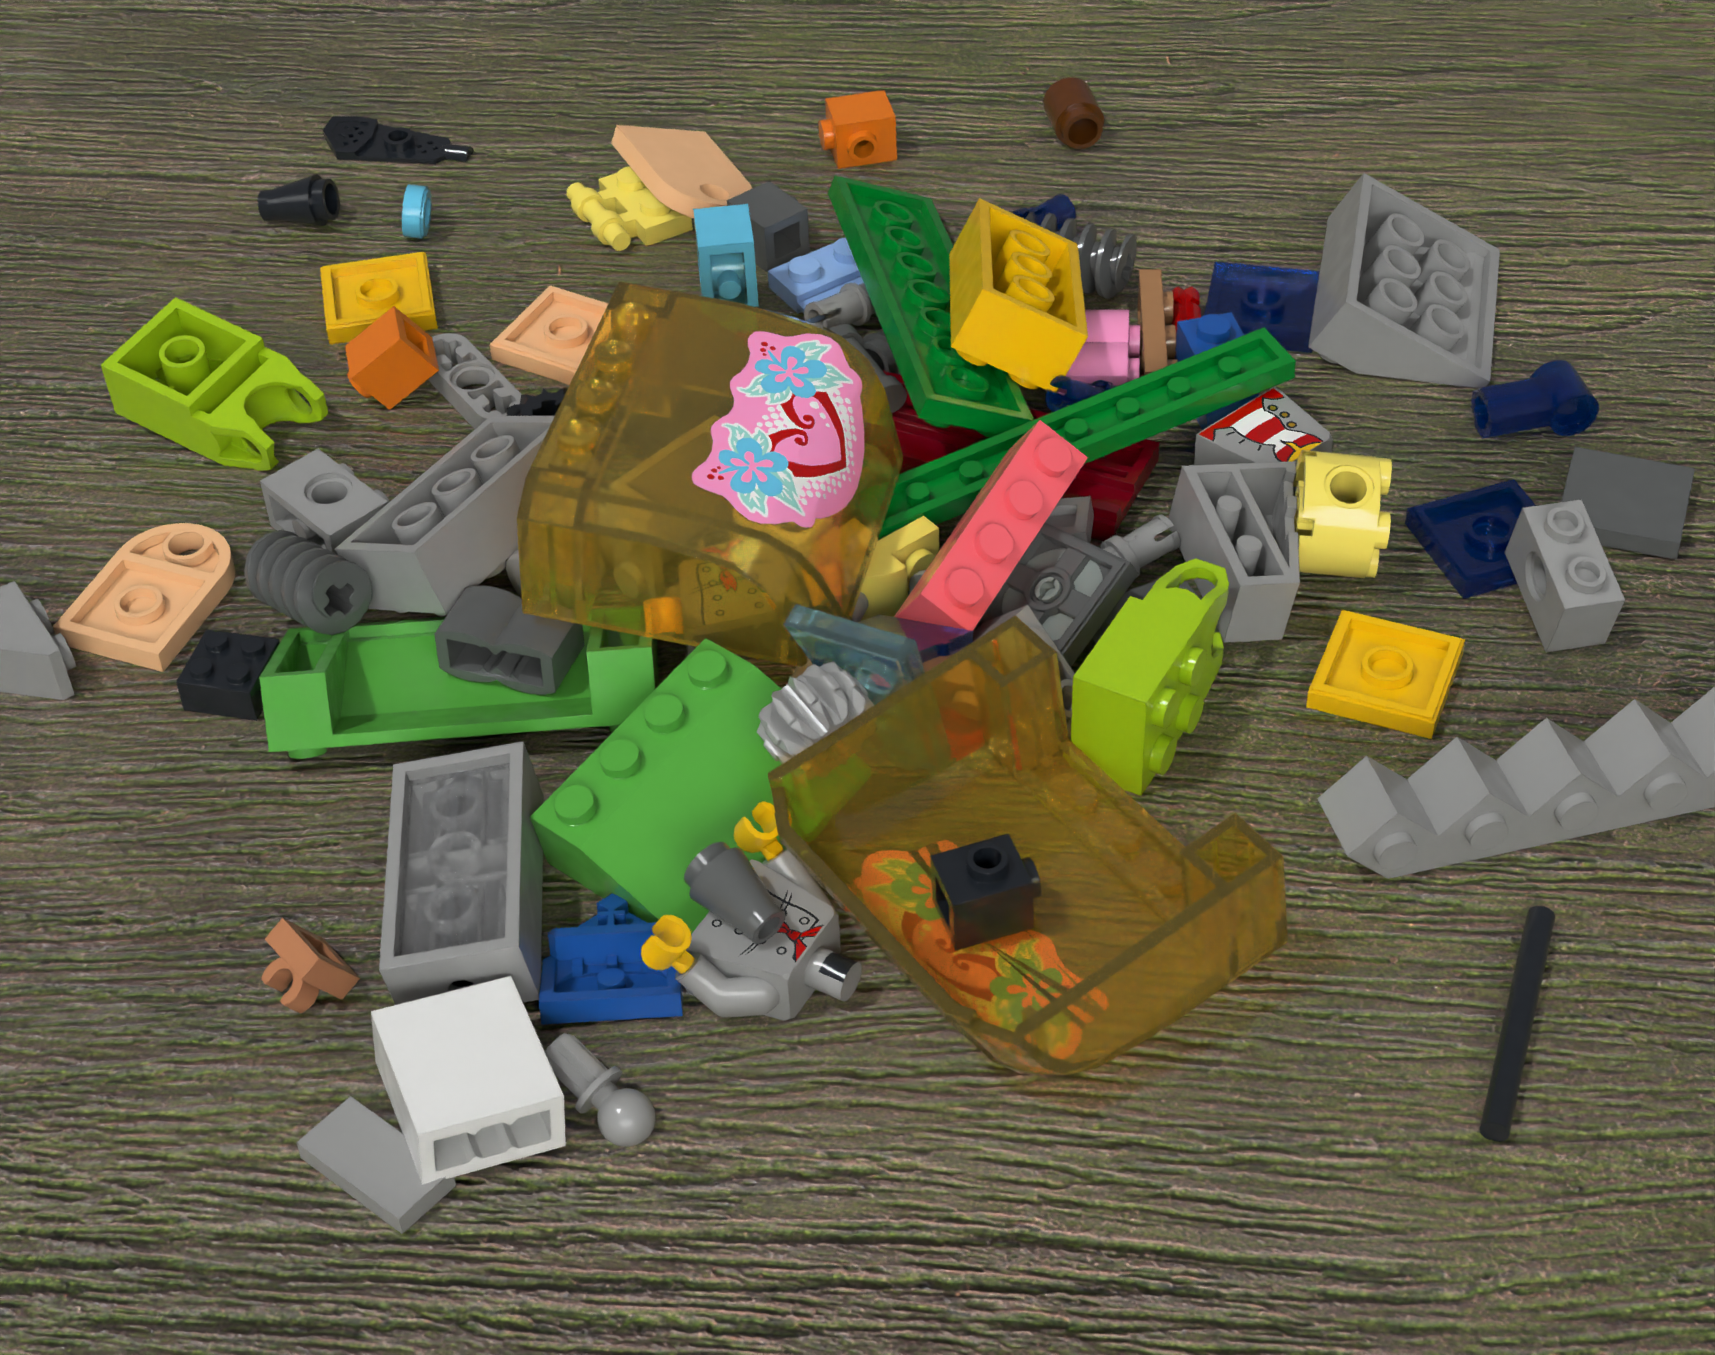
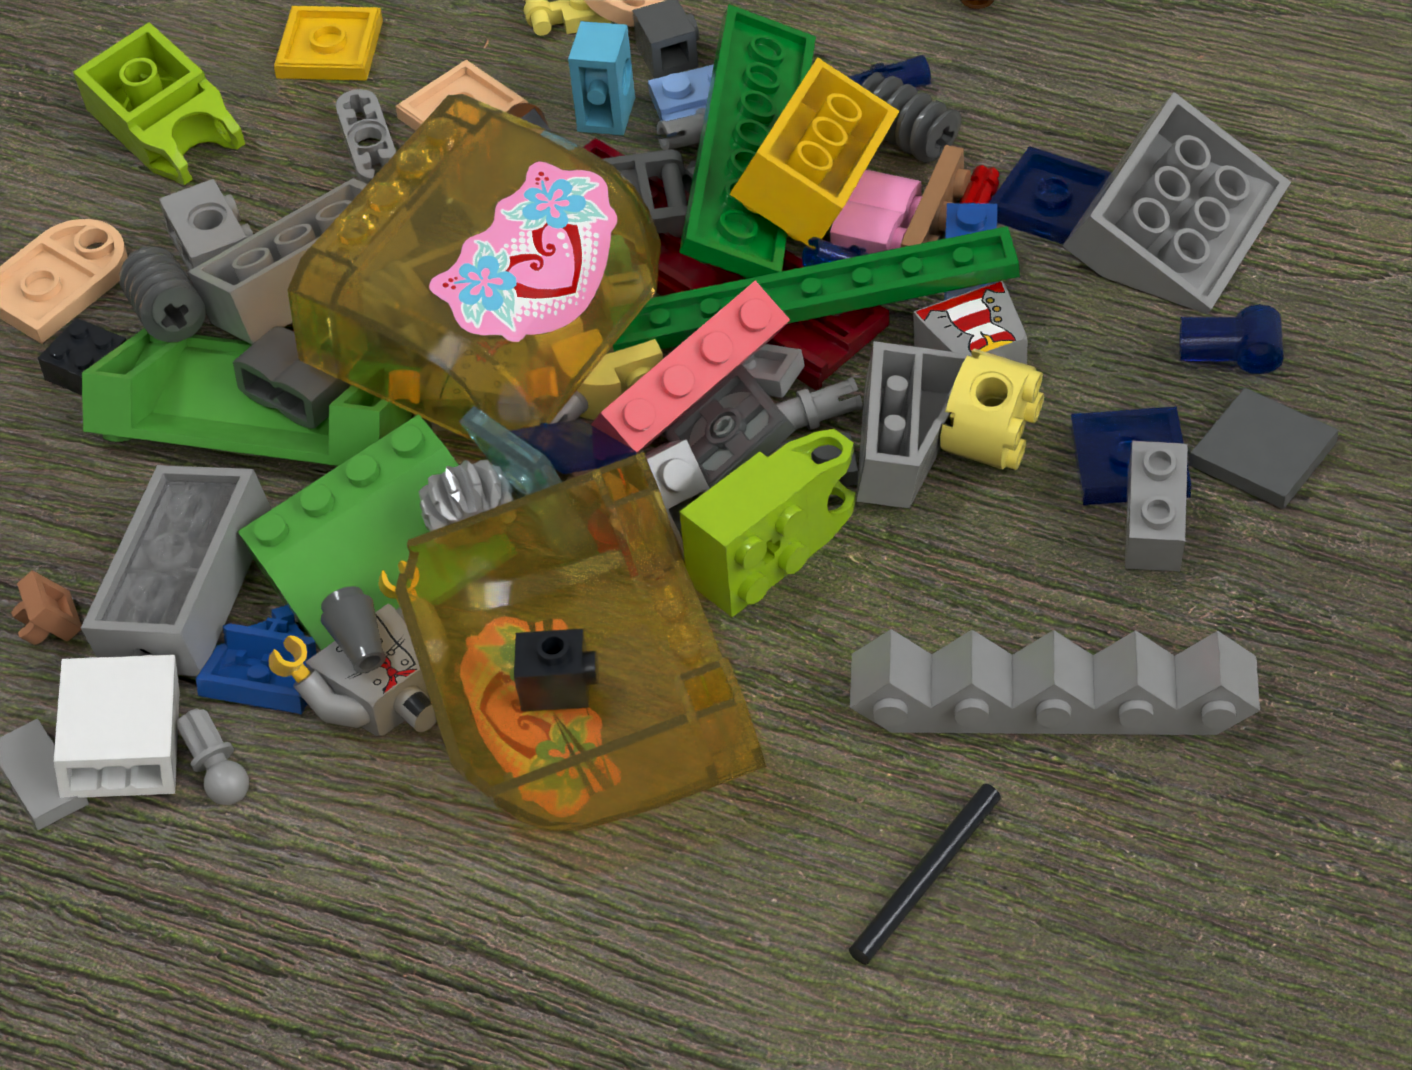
camera: 20 degrees right, 5 degrees up
(390, 358) = (306, 105): orange brick -> none
(1386, 674) = (978, 558): yellow tile -> none

